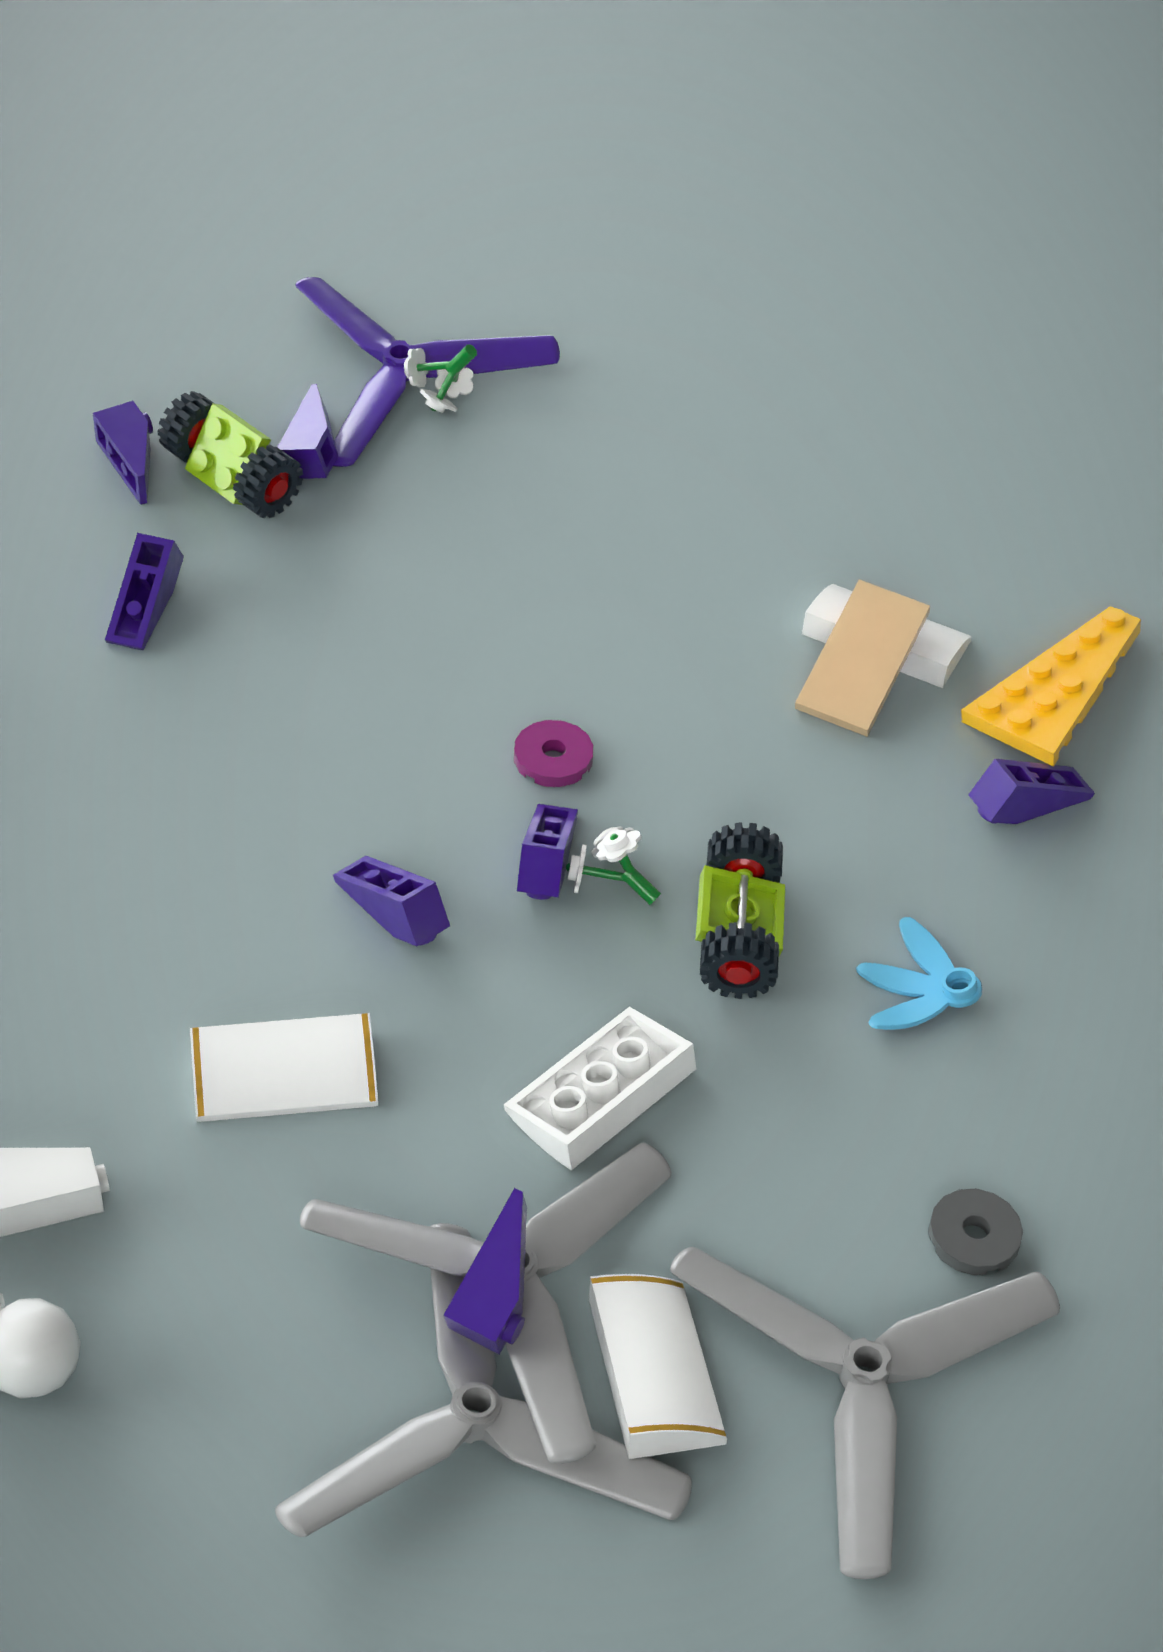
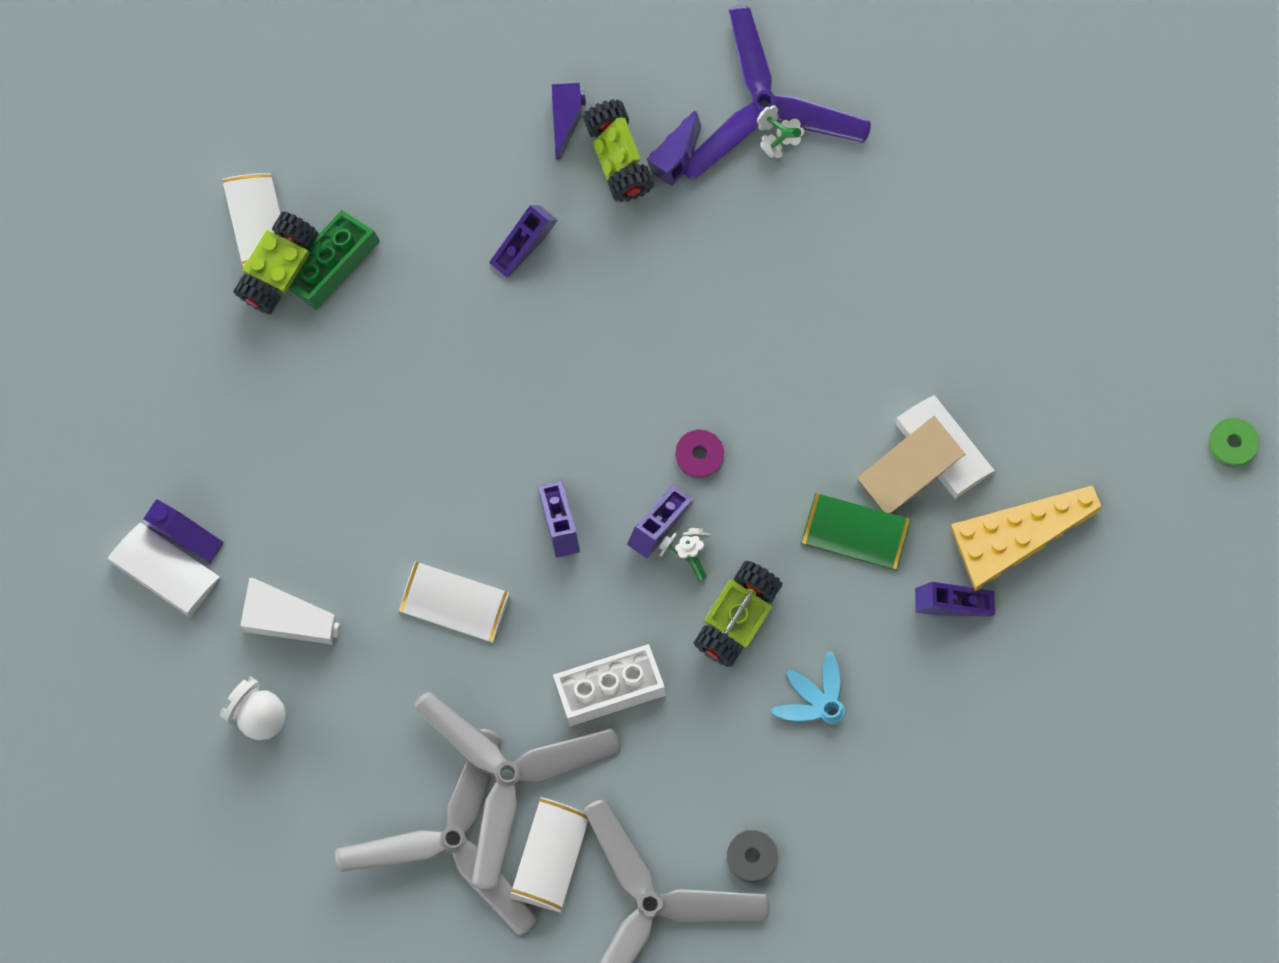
camera: 30 degrees right, 25 degrees up
(492, 1292) = (487, 786): dark purple slope -> none
(836, 762) = (855, 531): none -> green slope

